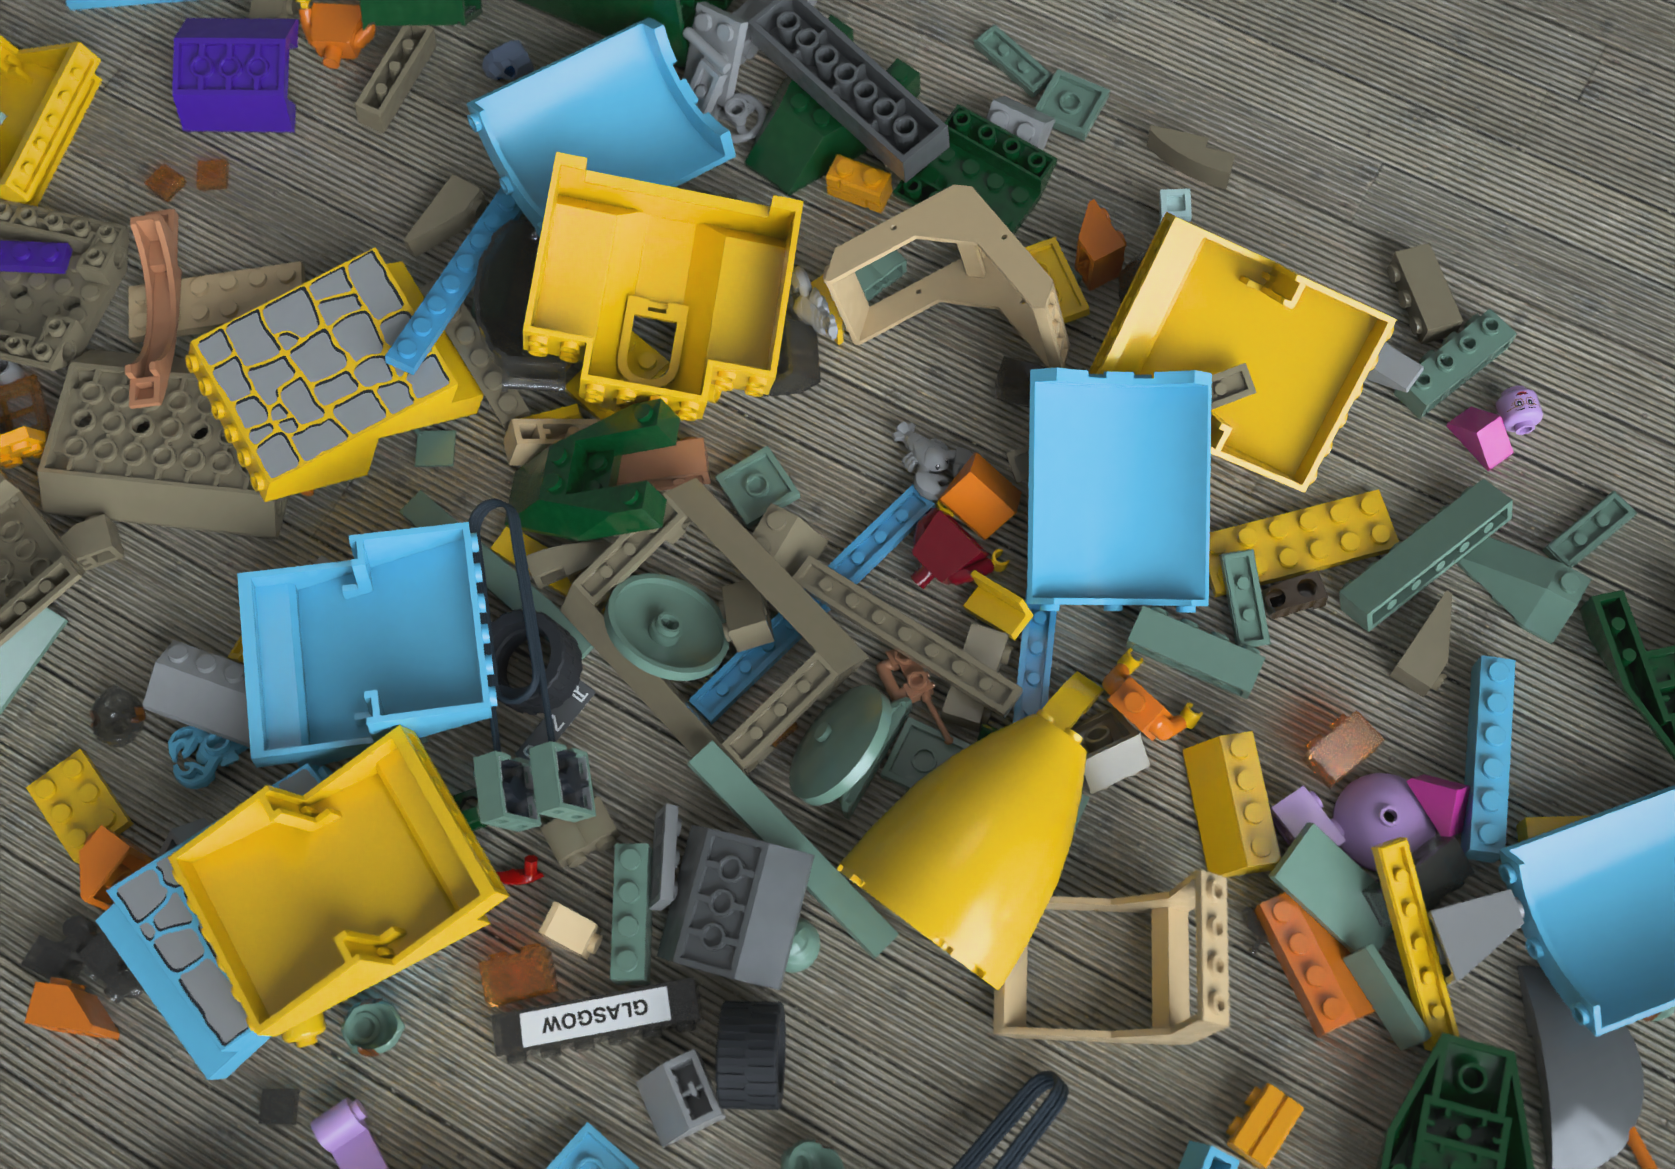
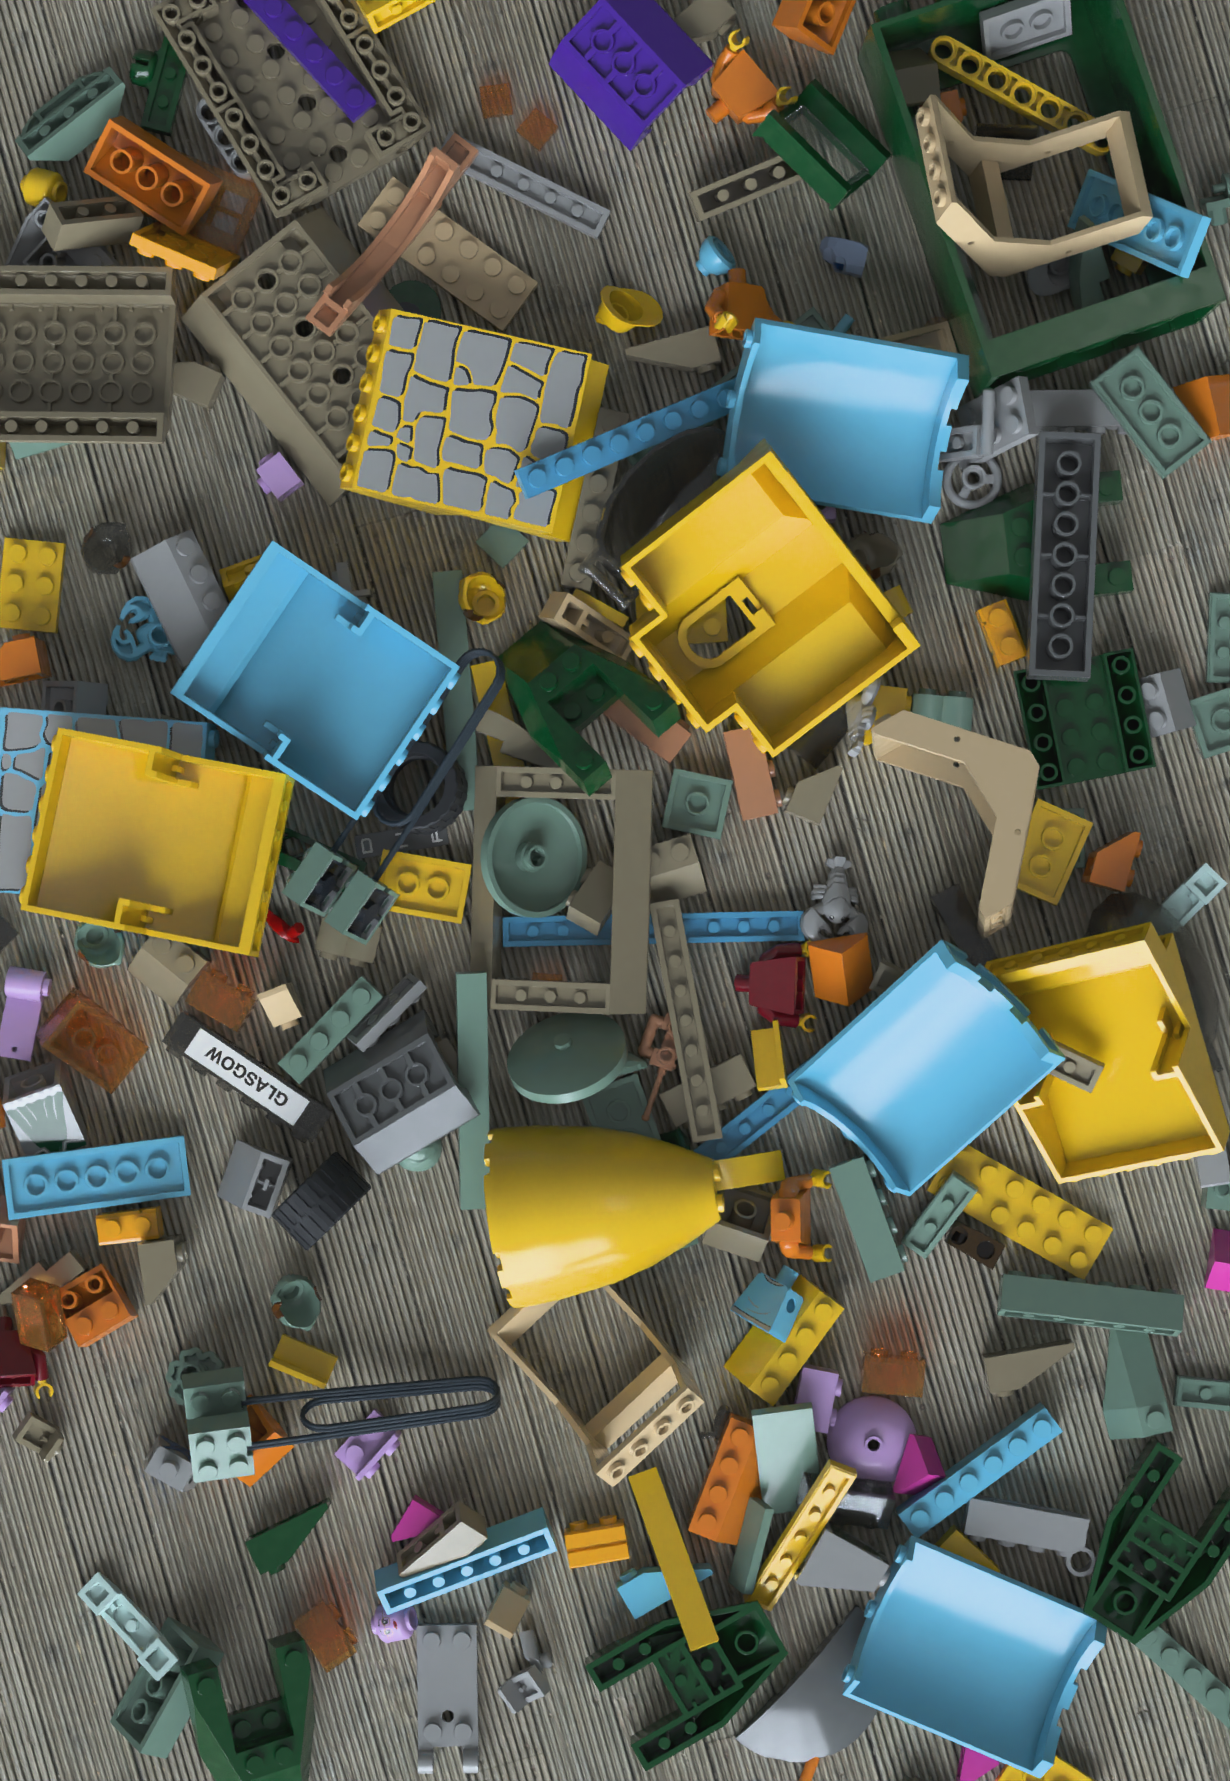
camera: 35 degrees right, 20 degrees up
(216, 549) = (277, 476): none -> lavender brick
(247, 208) = (536, 191): none -> light grey plate
(382, 224) = (626, 308): none -> yellow piece
(416, 140) = (714, 257): none -> medium azure brick
(437, 1117) = (91, 1040): none -> clear orange slope
(447, 993) = (168, 967): none -> dark tan slope
(452, 490) = (482, 597): none -> yellow hair
(460, 151) = (736, 305): none -> orange torso
(610, 732) = (427, 886): none -> yellow plate
(777, 427) = (751, 776): none -> nougat brick
(835, 400) = (811, 795): none -> dark tan slope
(1193, 787) = (771, 1303): none -> medium azure torso
(1341, 1070) = (673, 1559): none -> yellow tile
(1348, 1115) = (647, 1588): none -> medium azure slope
(1576, 760) = (1029, 1525): none -> light grey hinge

